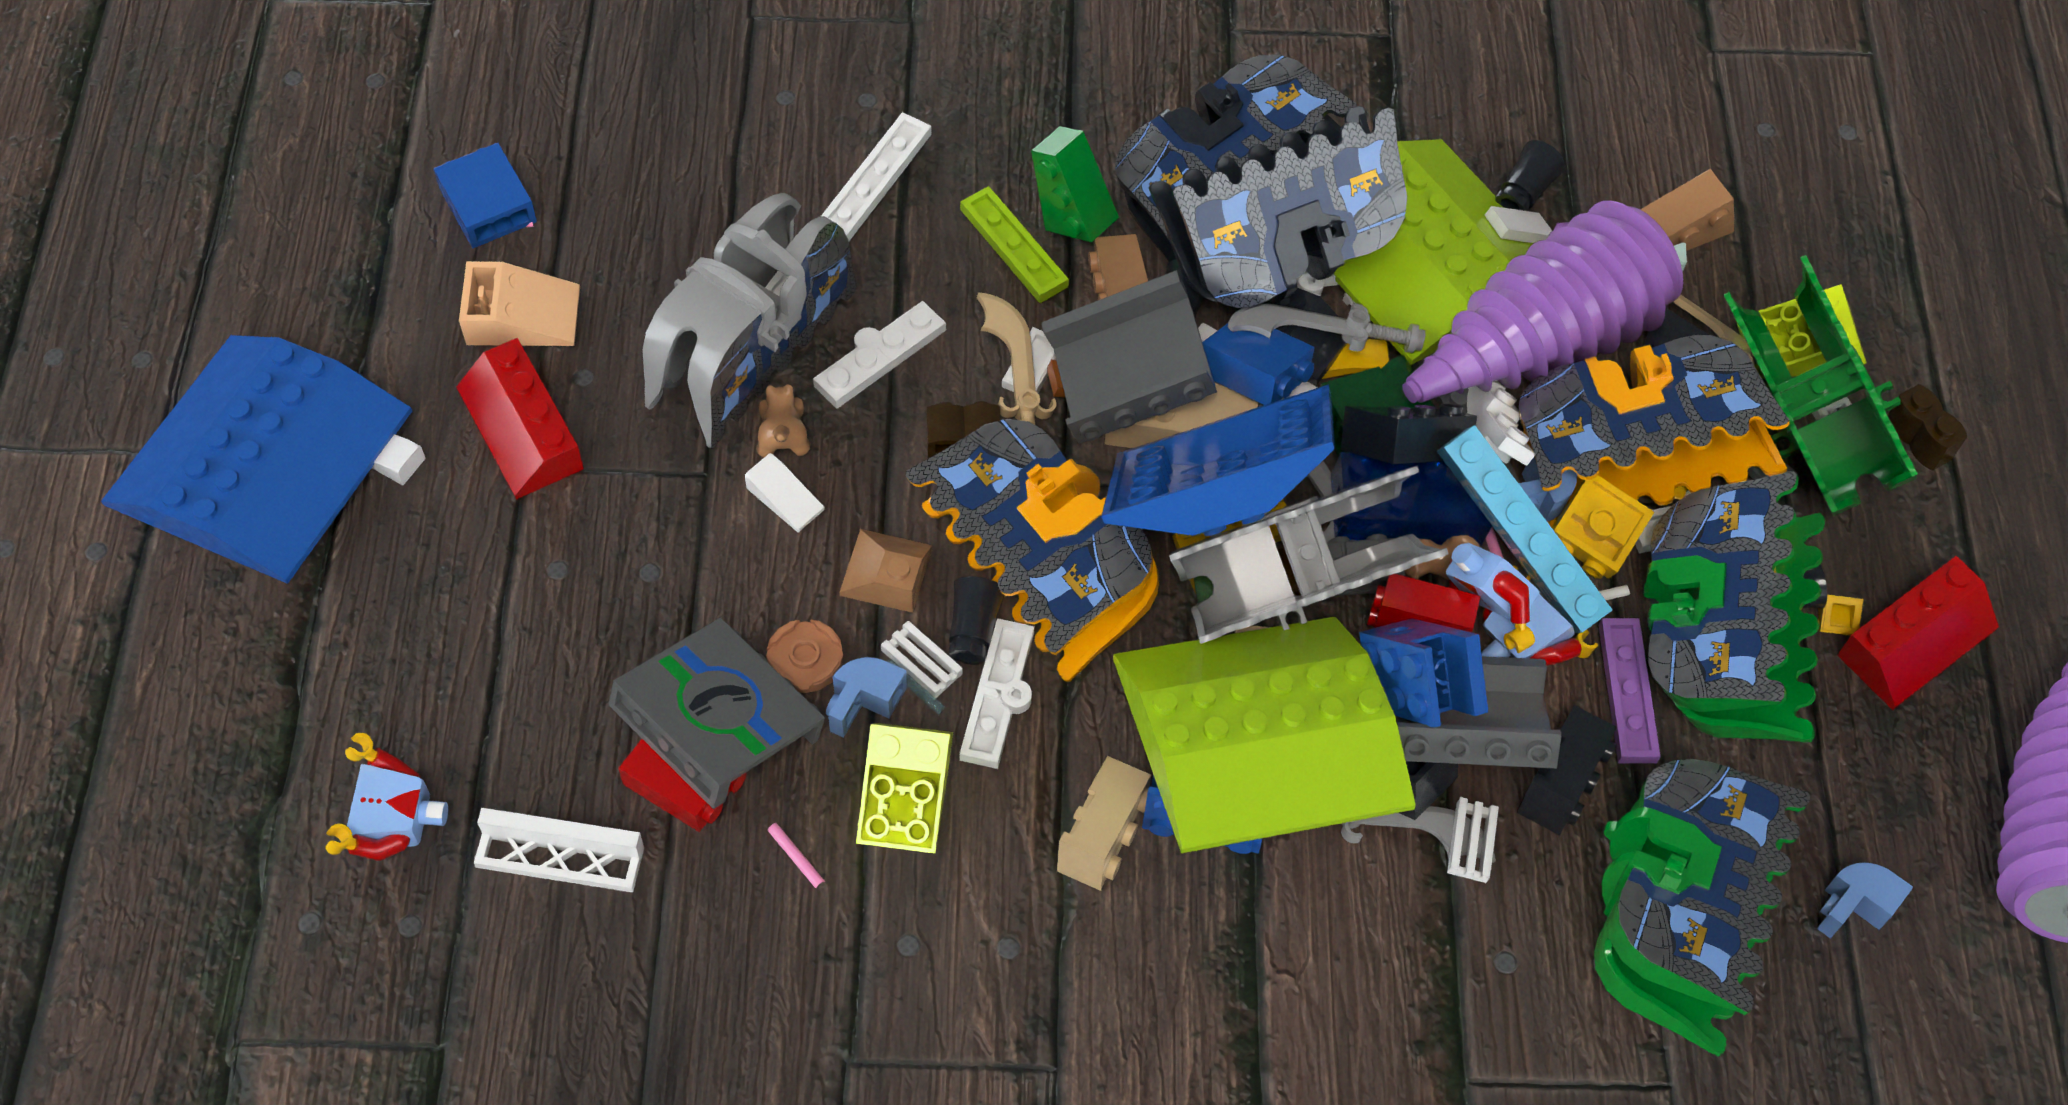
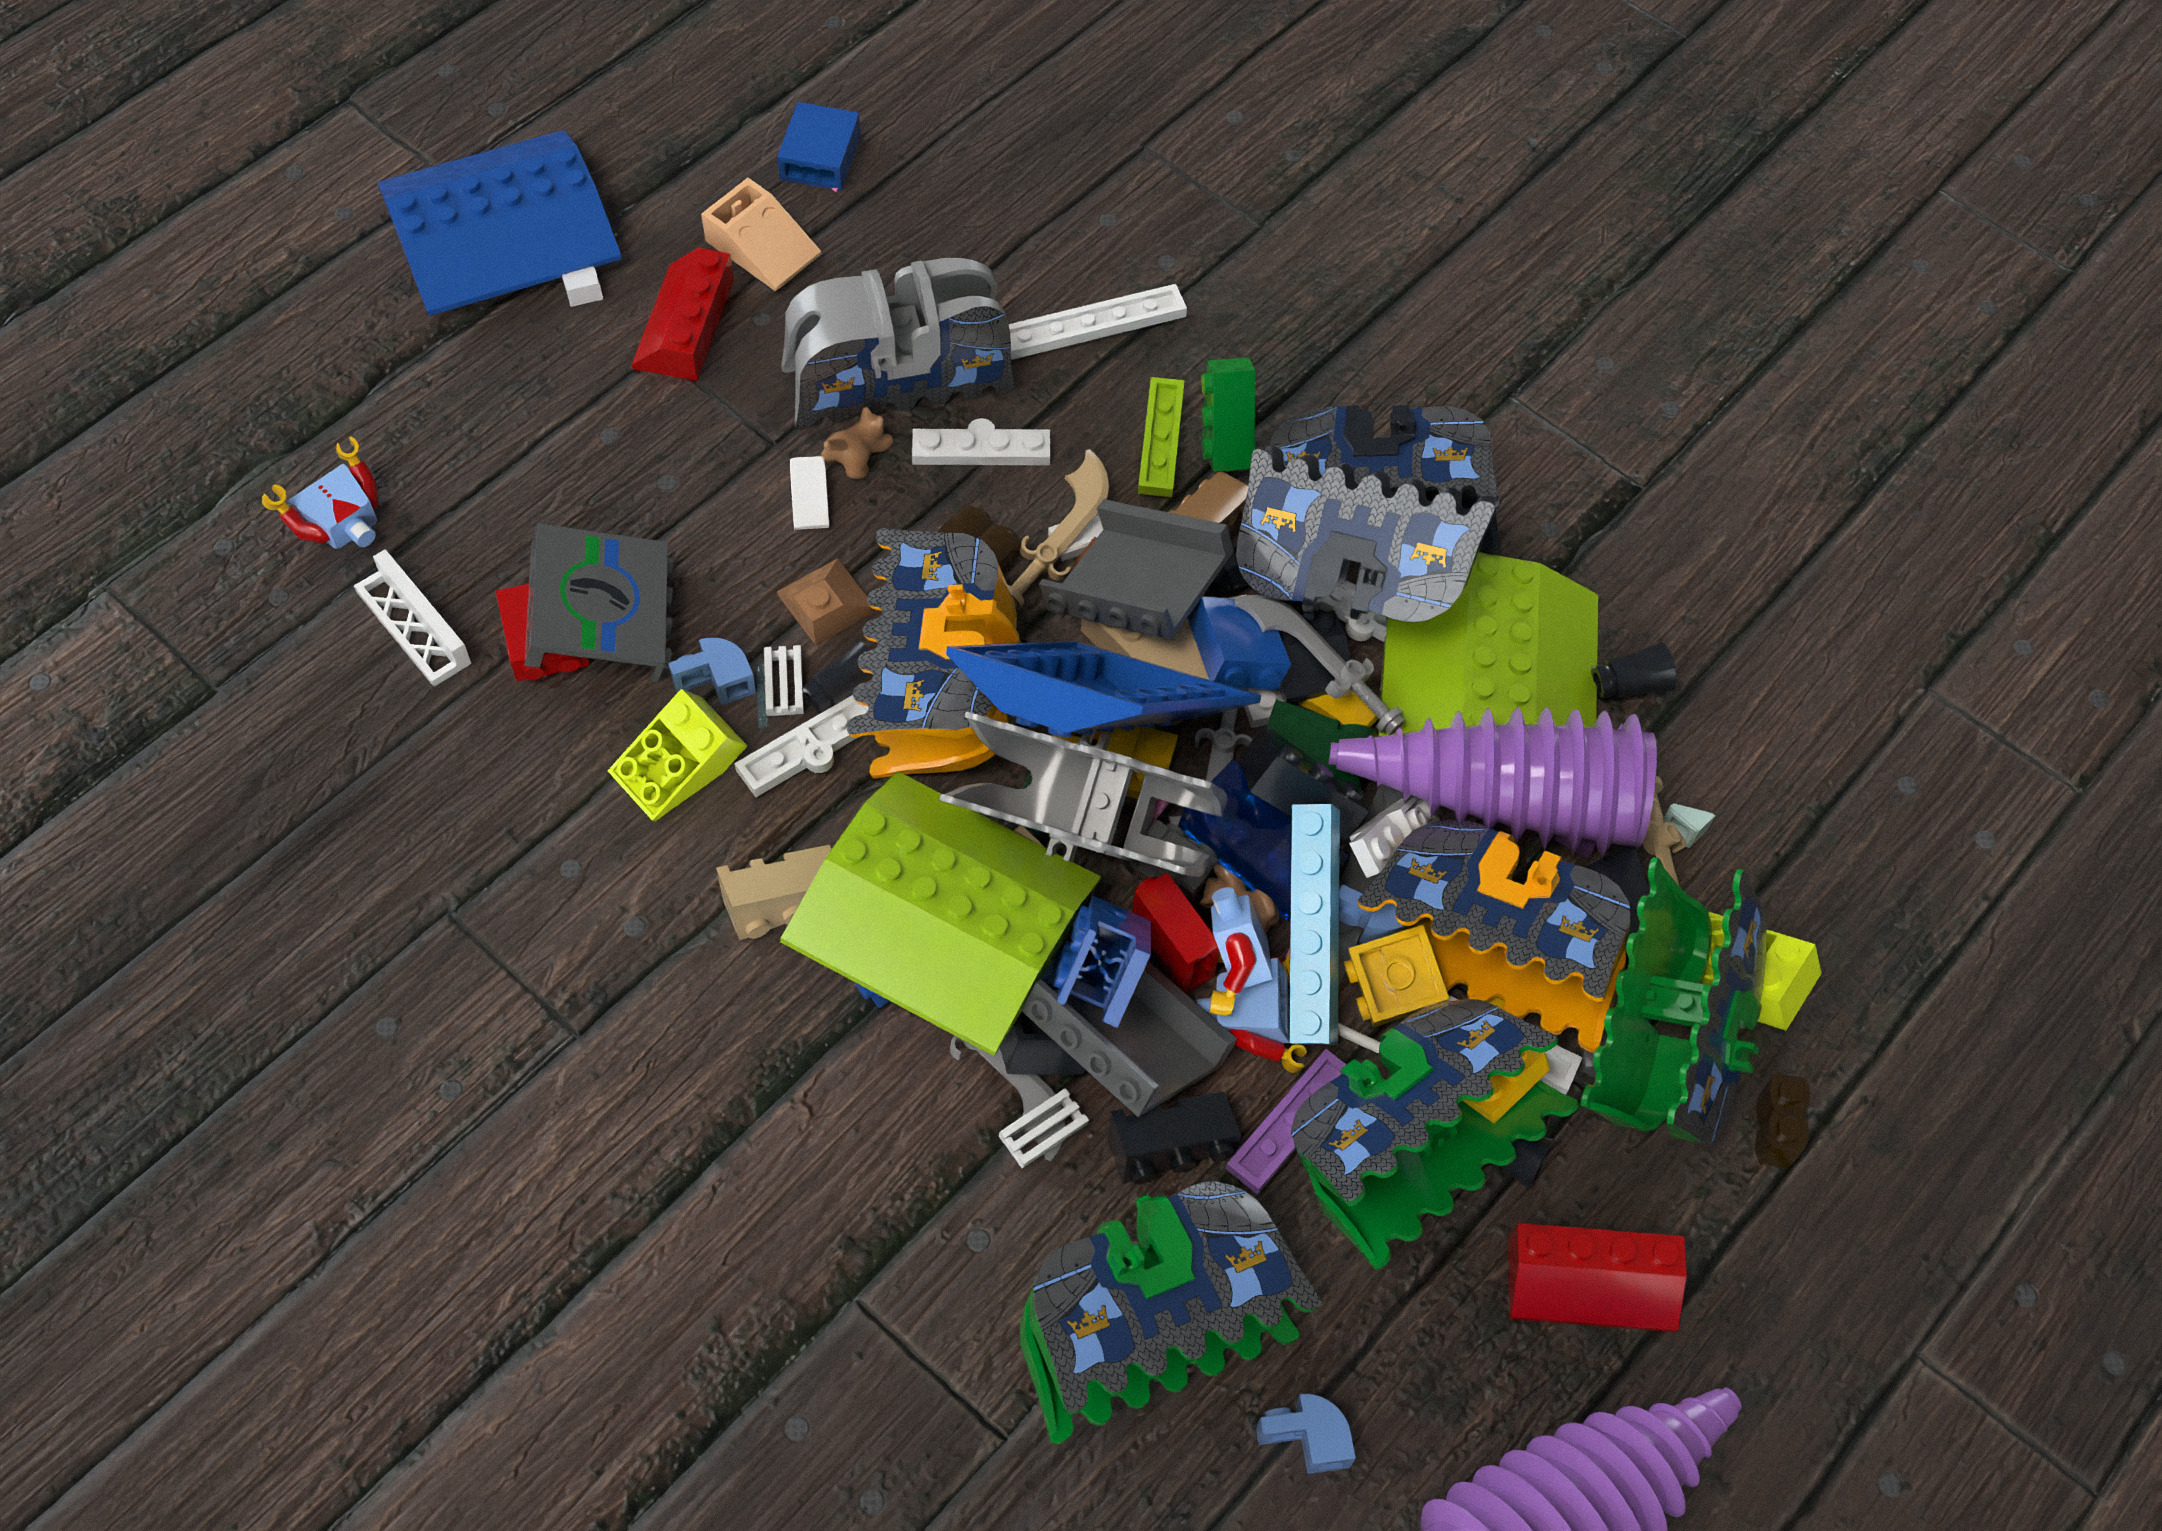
camera: 40 degrees right, 0 degrees up
(795, 854) = (562, 746): bright pink piece -> none
(806, 654) = (707, 613): nougat tile -> none
(1518, 224) = (1575, 693): white tile -> none
(1695, 211) = (1740, 795): medium nougat wedge -> none
(1840, 615) = (1542, 1205): yellow slope -> none

